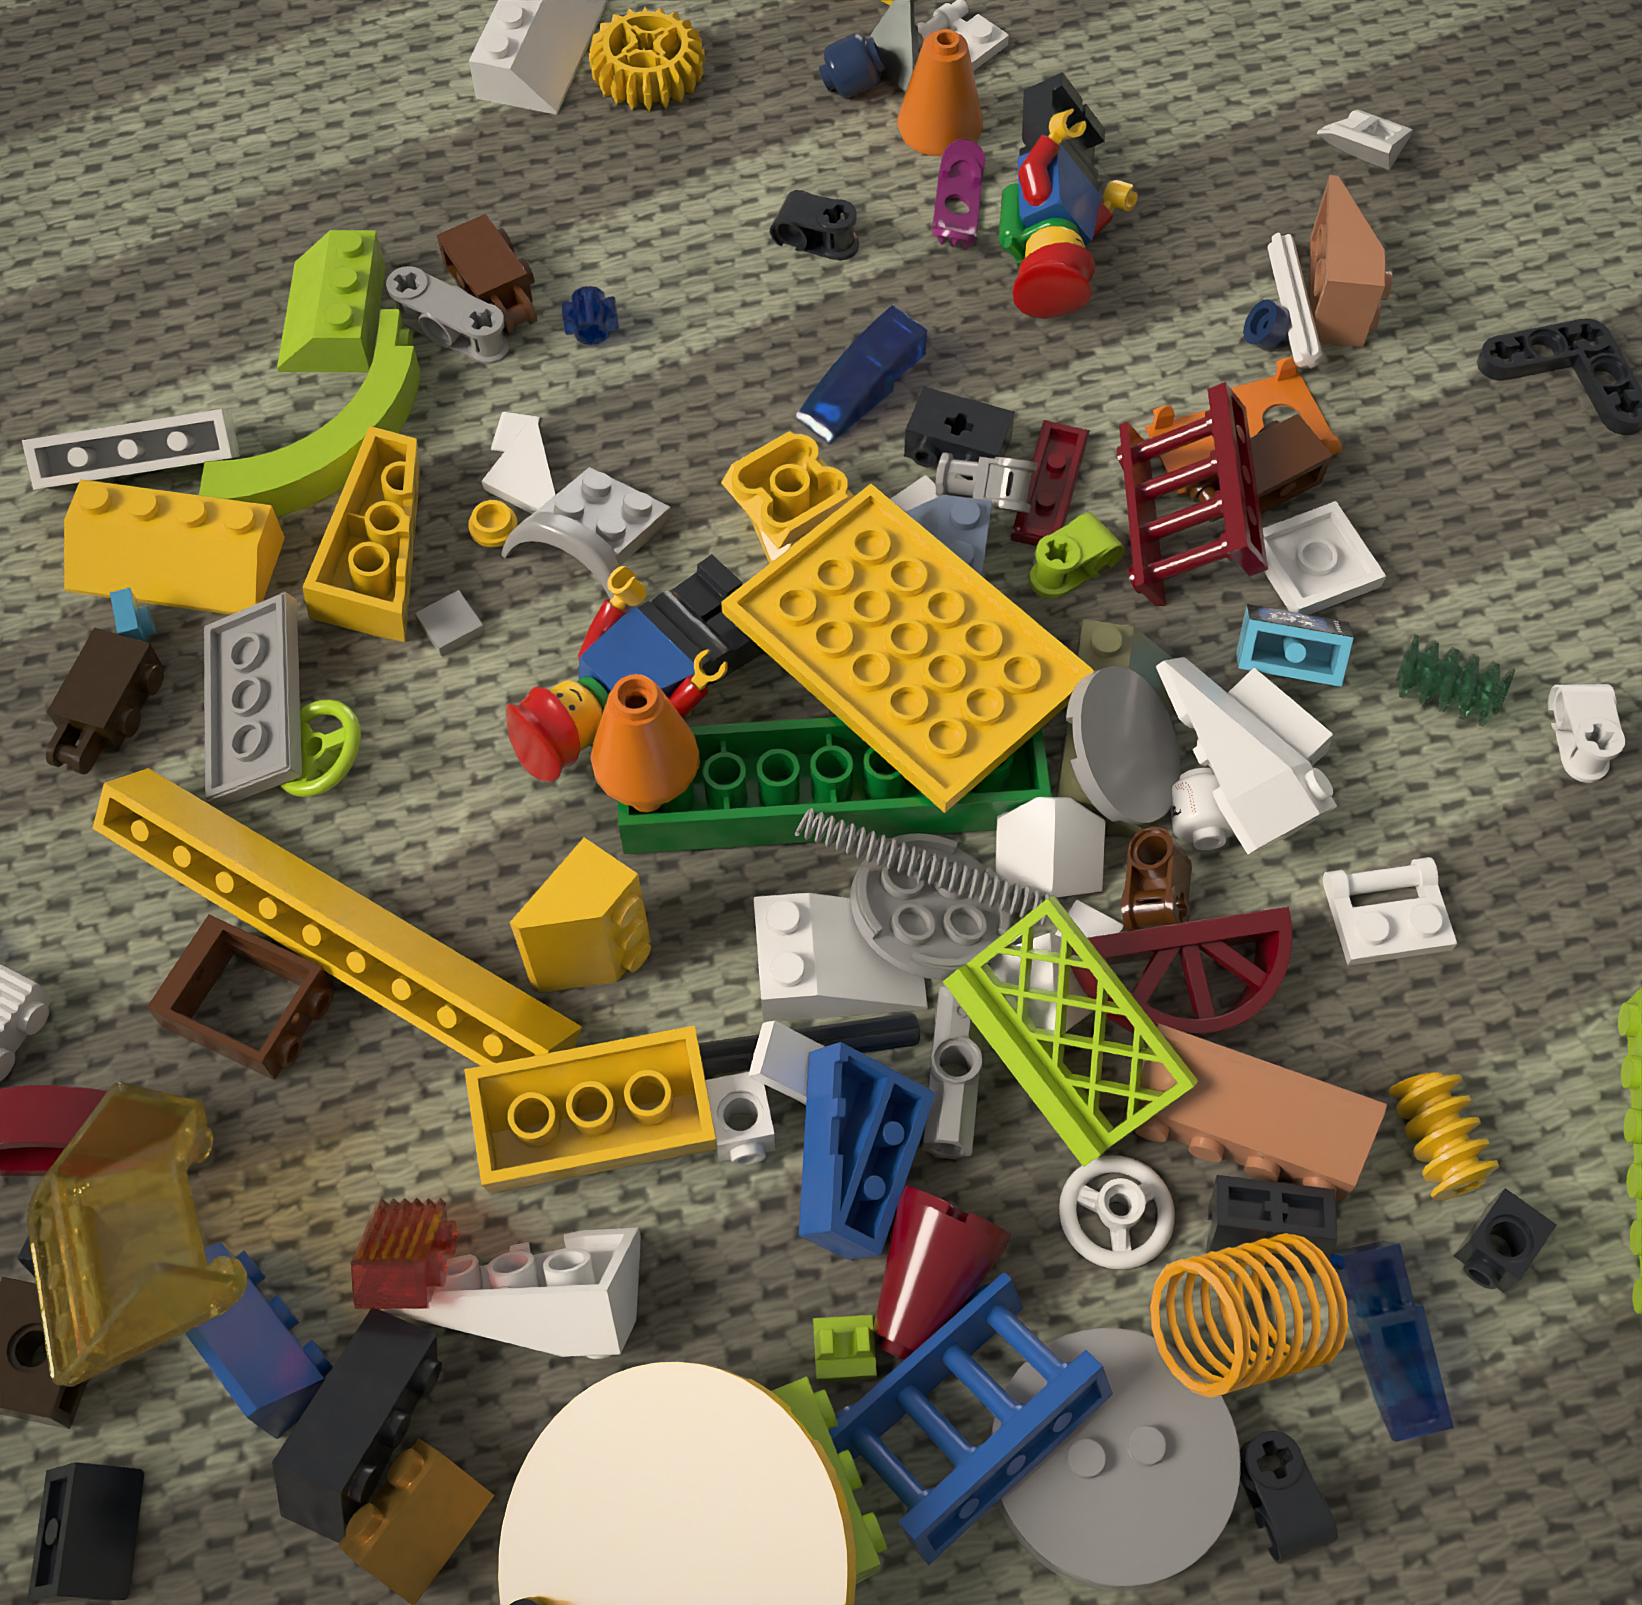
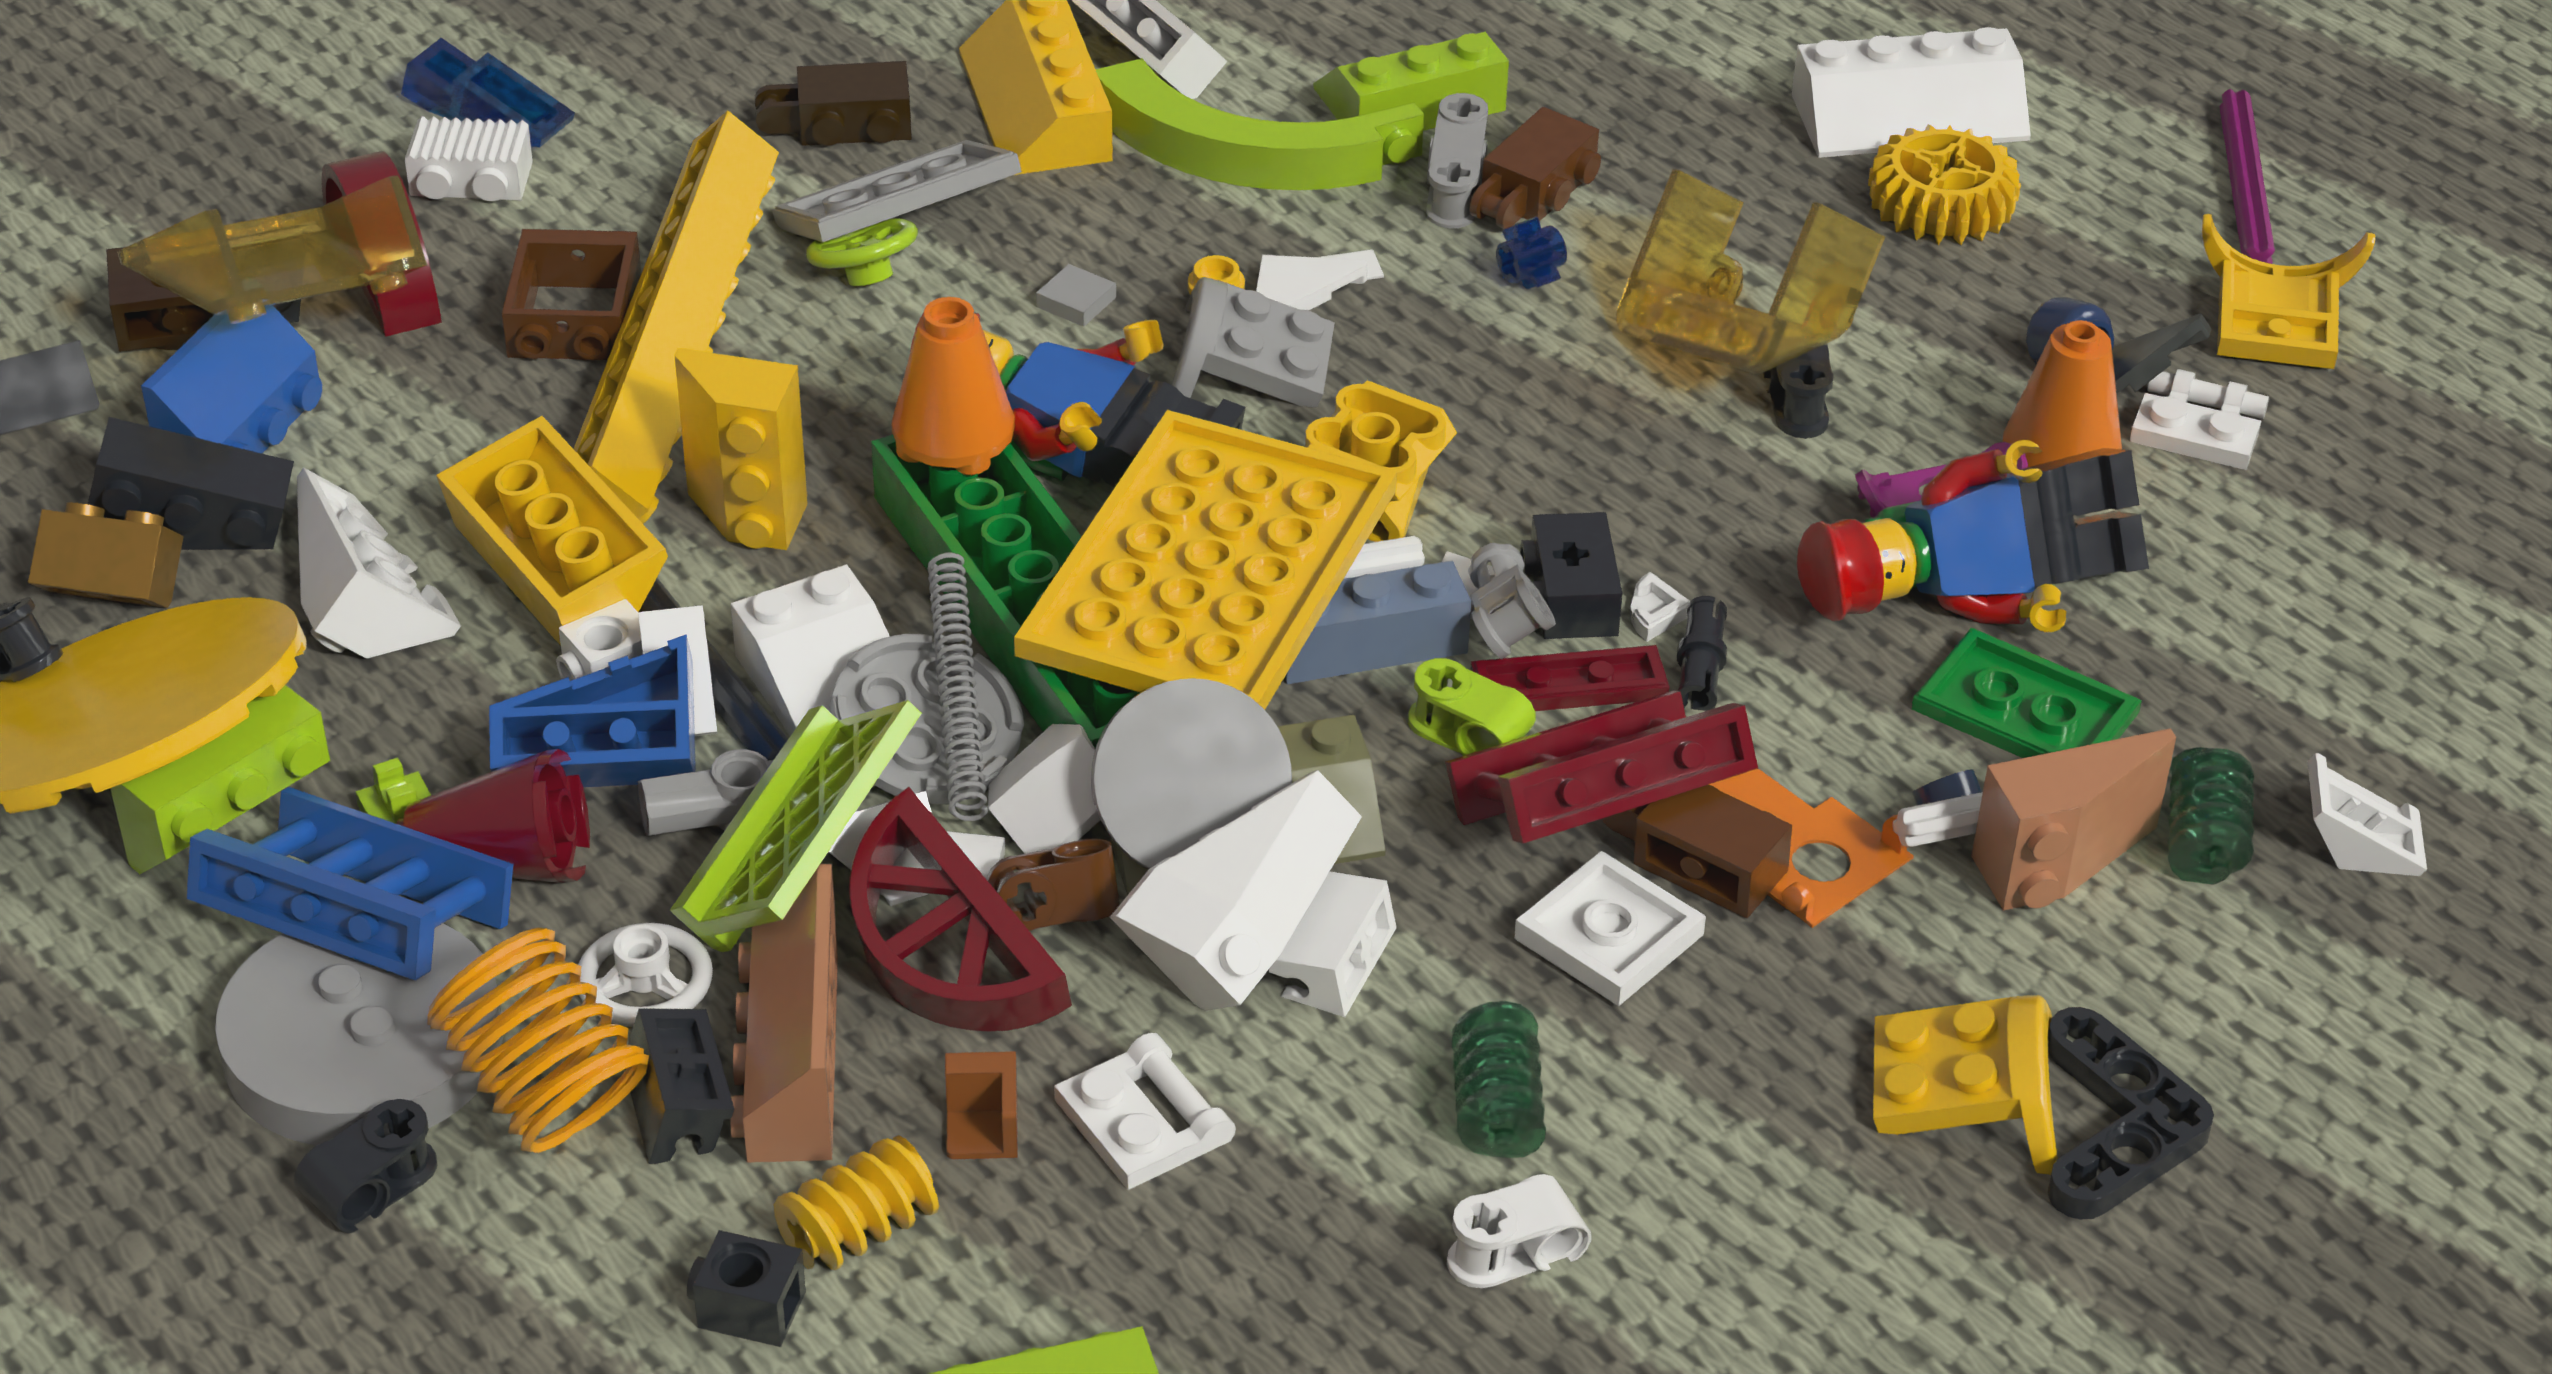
camera: 65 degrees right, 20 degrees down
(130, 617) = (937, 91): dark azure plate -> none
(370, 542) = (1132, 196): yellow wedge -> none
(403, 1255) = (352, 460): clear red brick -> none
(713, 258) = (1688, 289): none -> clear yellow windscreen
(863, 374) = (1608, 478): clear blue slope -> none
(1000, 396) = (1656, 607): none -> white tile
(1066, 398) = (1702, 652): none -> black pin
(1185, 251) = (2021, 699): none -> green tile
(1294, 645) = (1452, 918): medium azure brick -> none
(1312, 187) = (2210, 814): none -> clear green piece
(1363, 1013) = (981, 1105): none -> dark orange panel
(1393, 1340) = (589, 1218): clear blue slope -> none
(1521, 419) = (1967, 1069): none -> yellow piece

